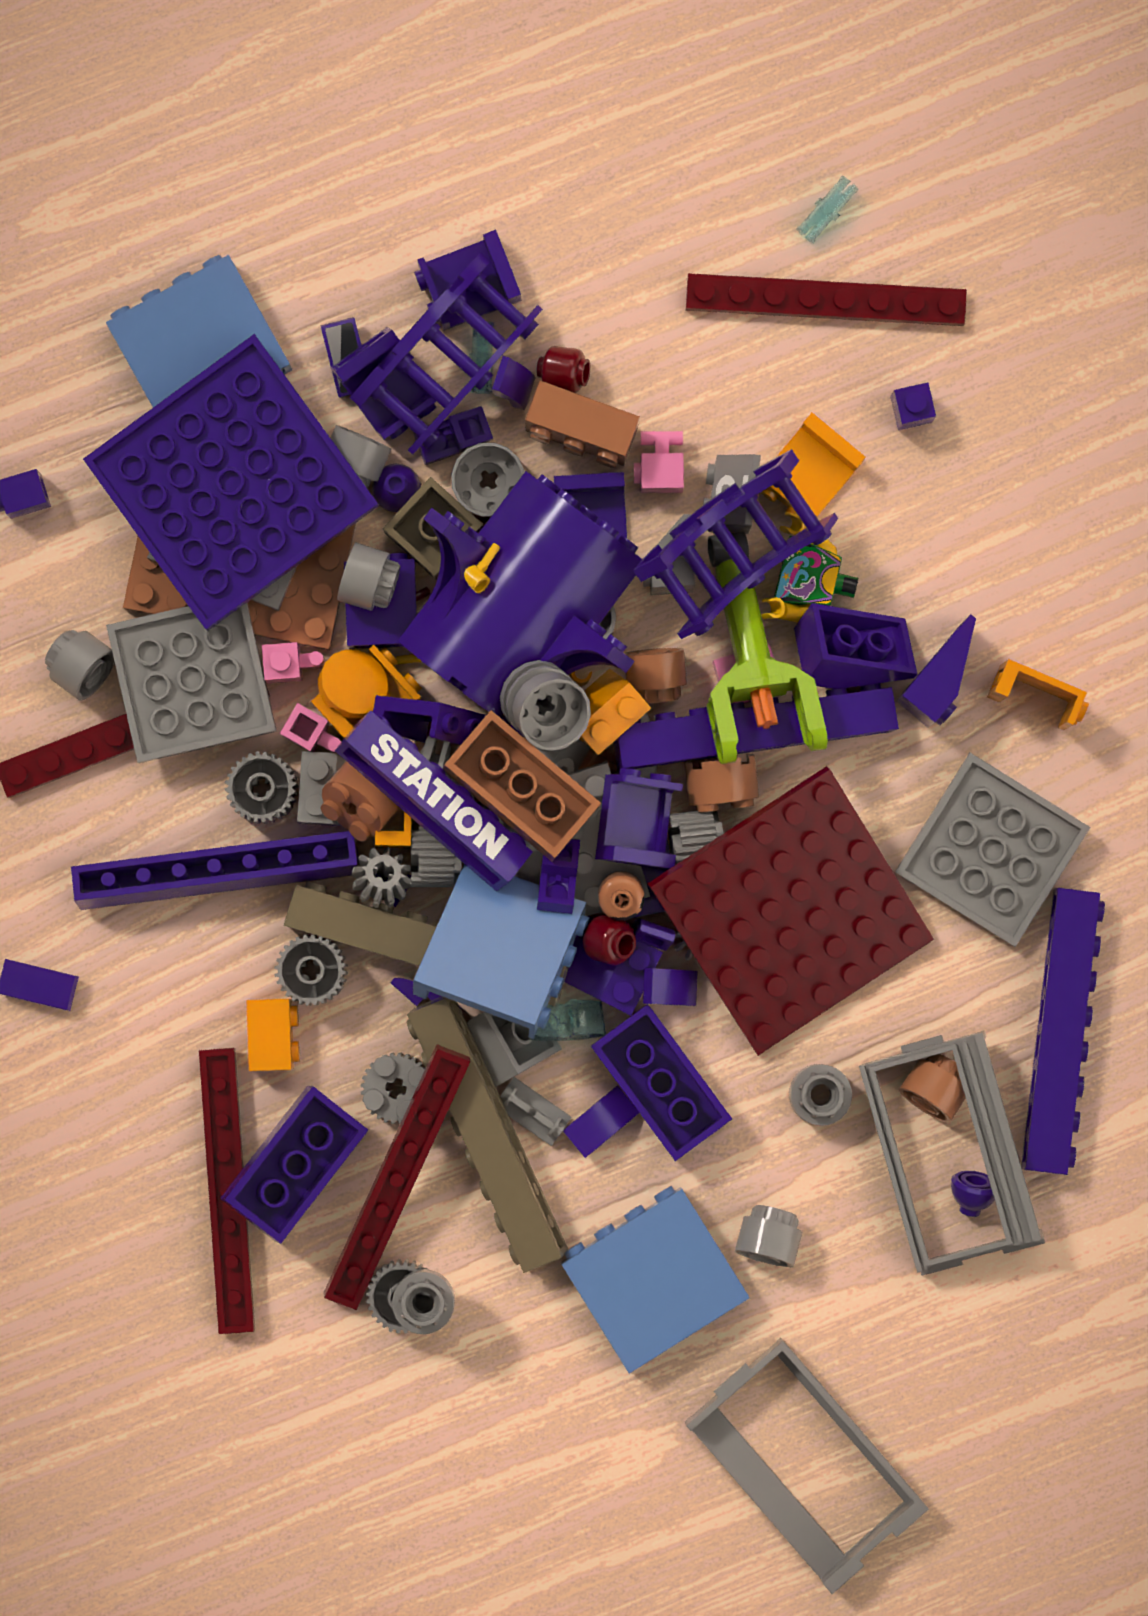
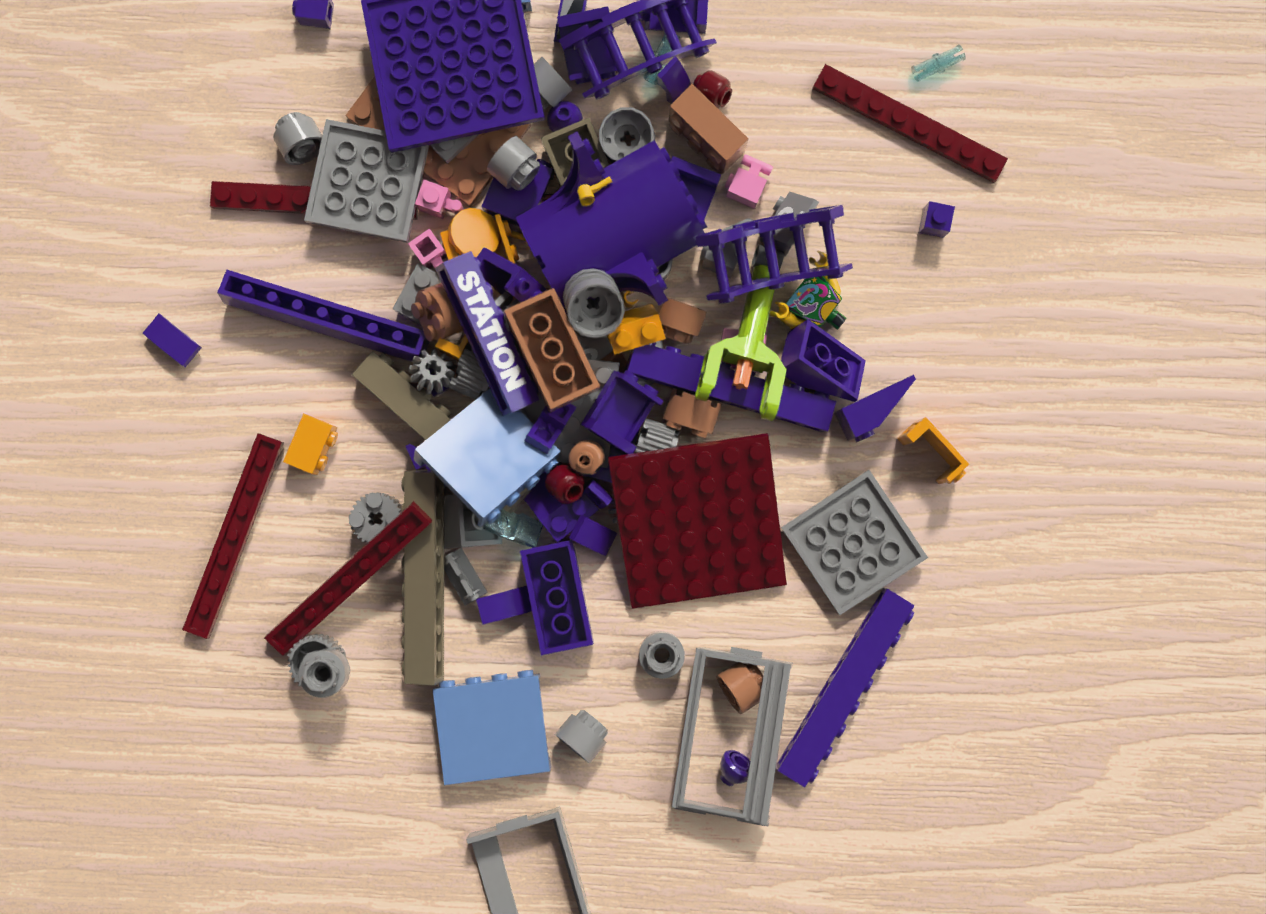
camera: 30 degrees right, 0 degrees up
(247, 774) = (375, 263): light grey brick -> none
(294, 1164) = (282, 539): dark purple brick -> none
(299, 986) = (346, 423): light grey brick -> none
(457, 435) = (619, 98): dark purple slope -> none
(823, 465) = (855, 231): light orange panel -> none

